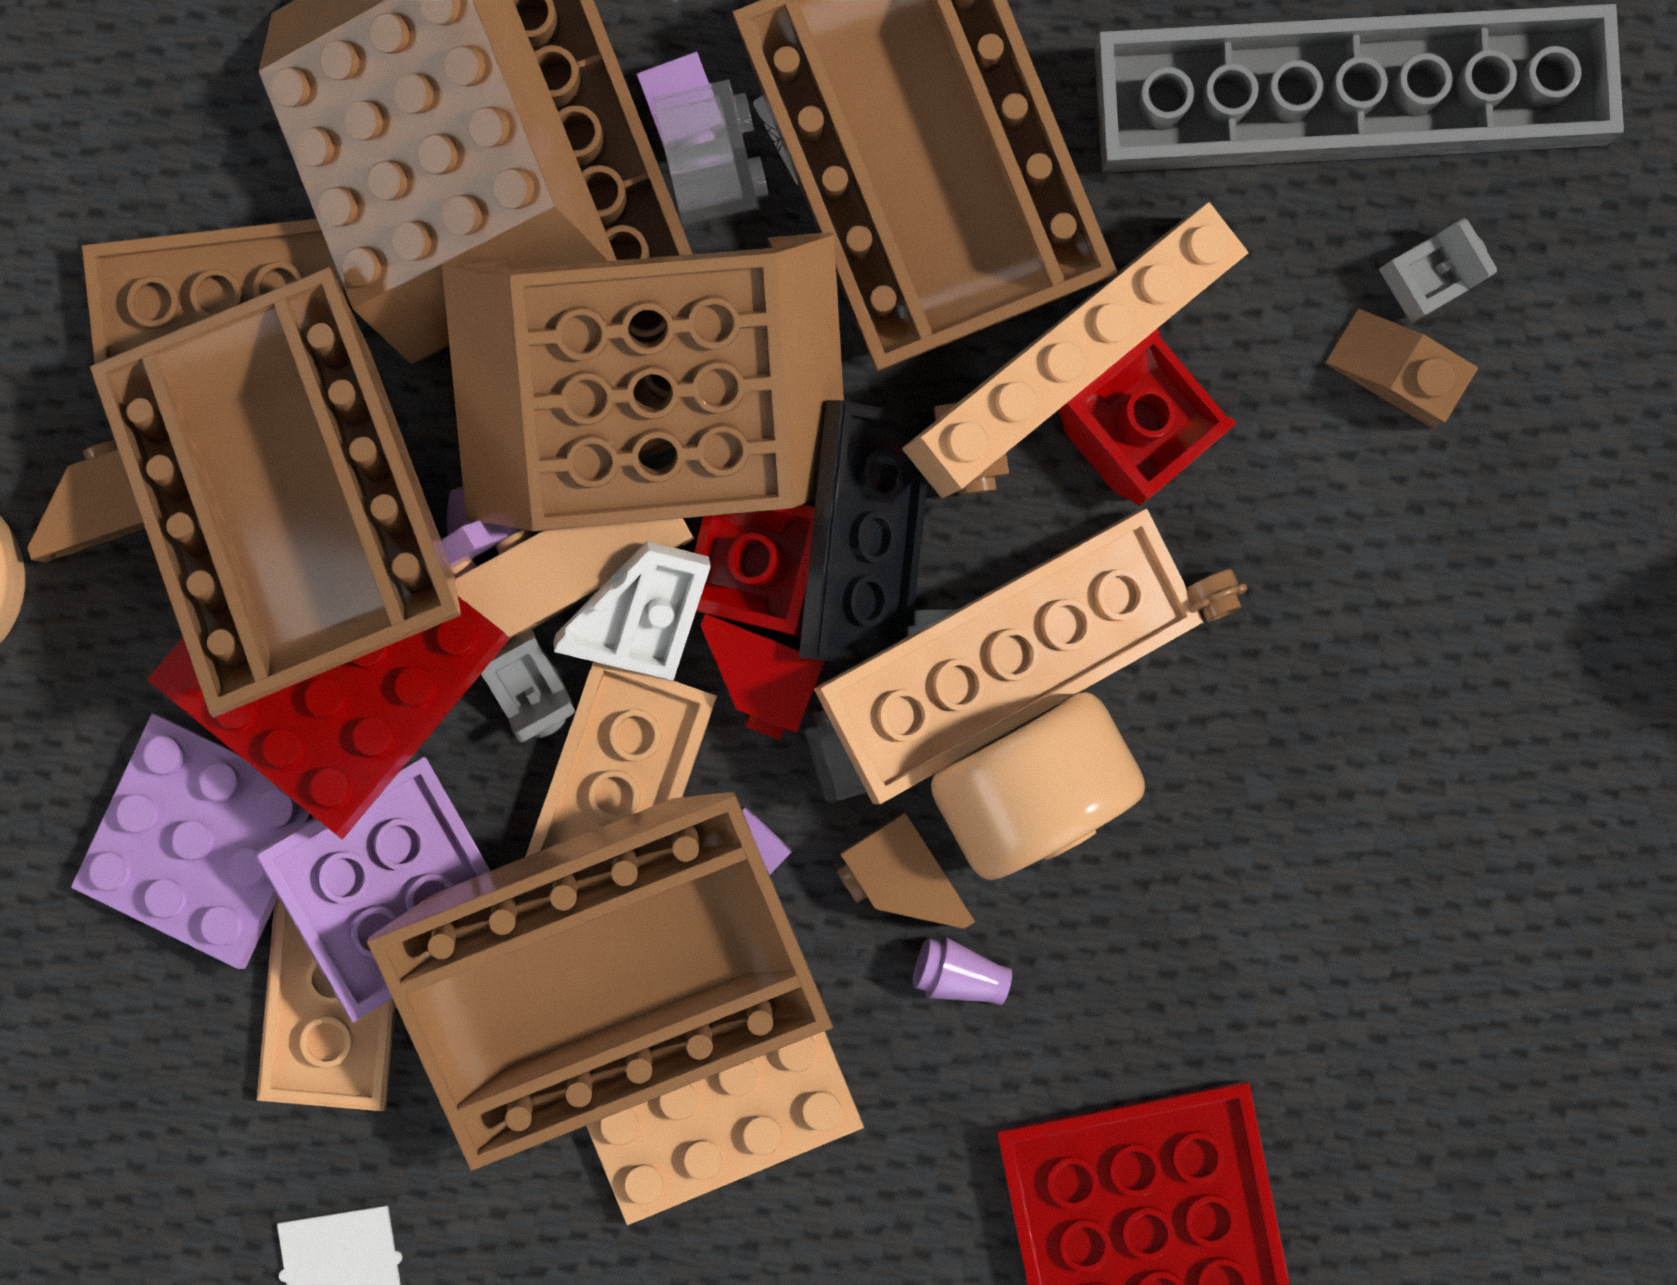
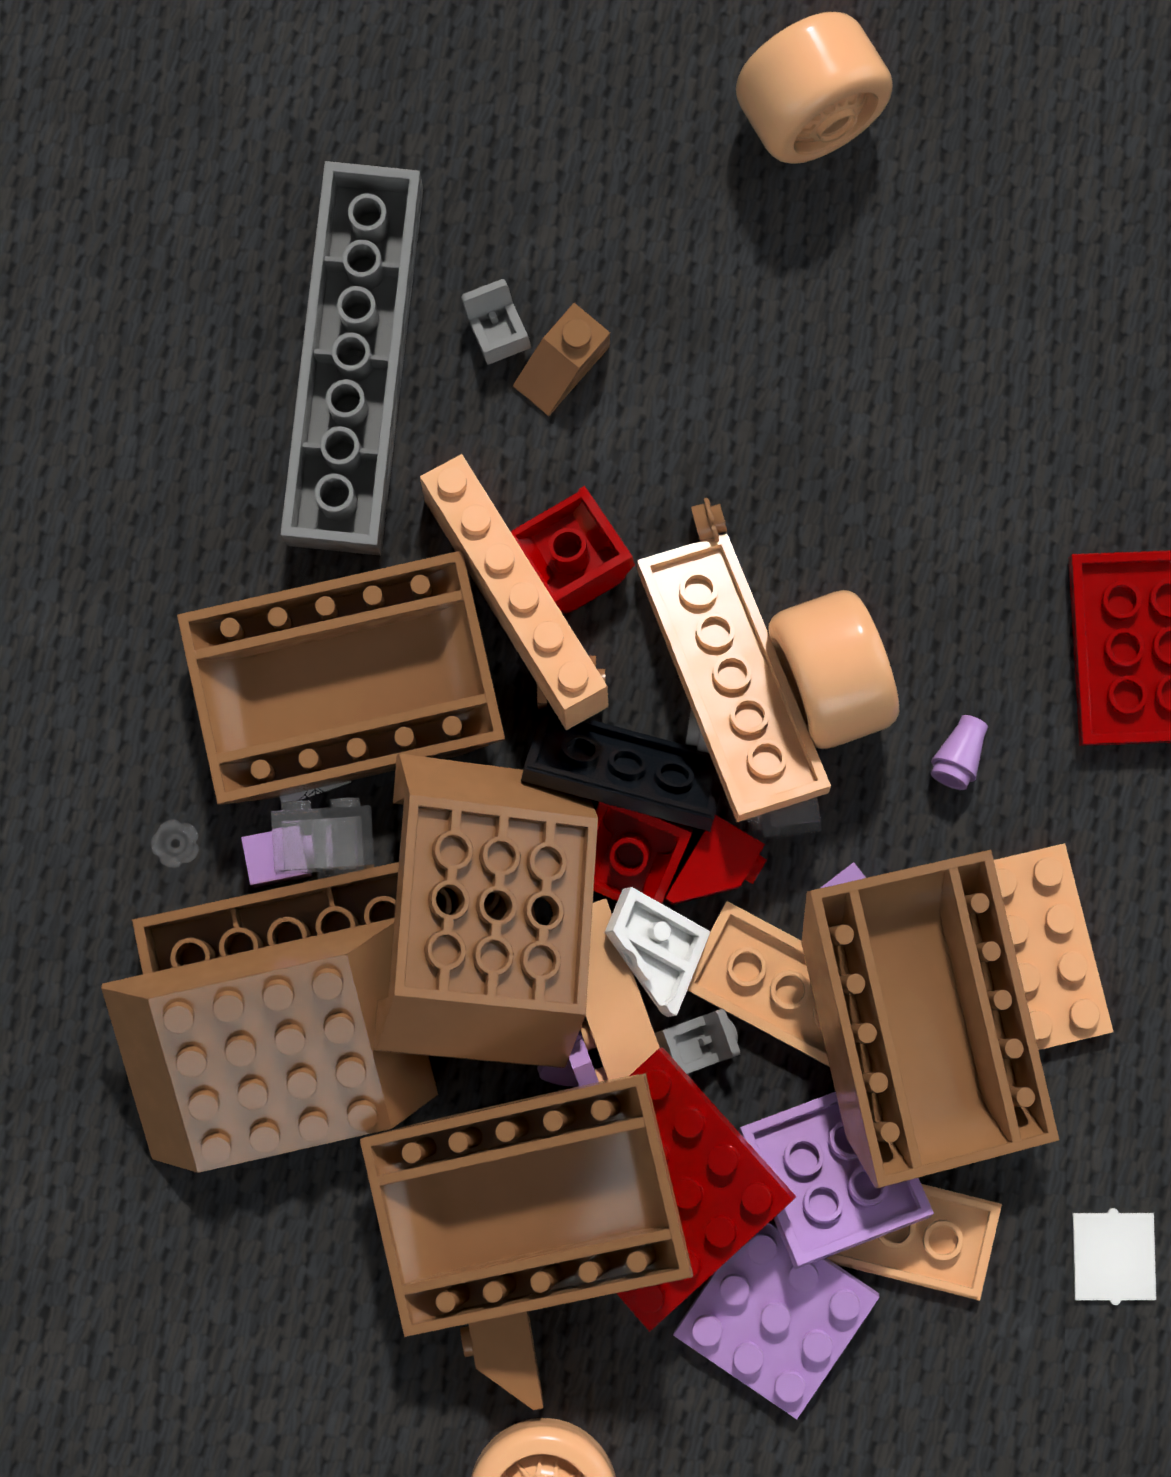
camera: 85 degrees left, 5 degrees down
(172, 281) = (348, 1261): medium nougat plate -> none
(902, 876) = (881, 784): medium nougat slope -> none

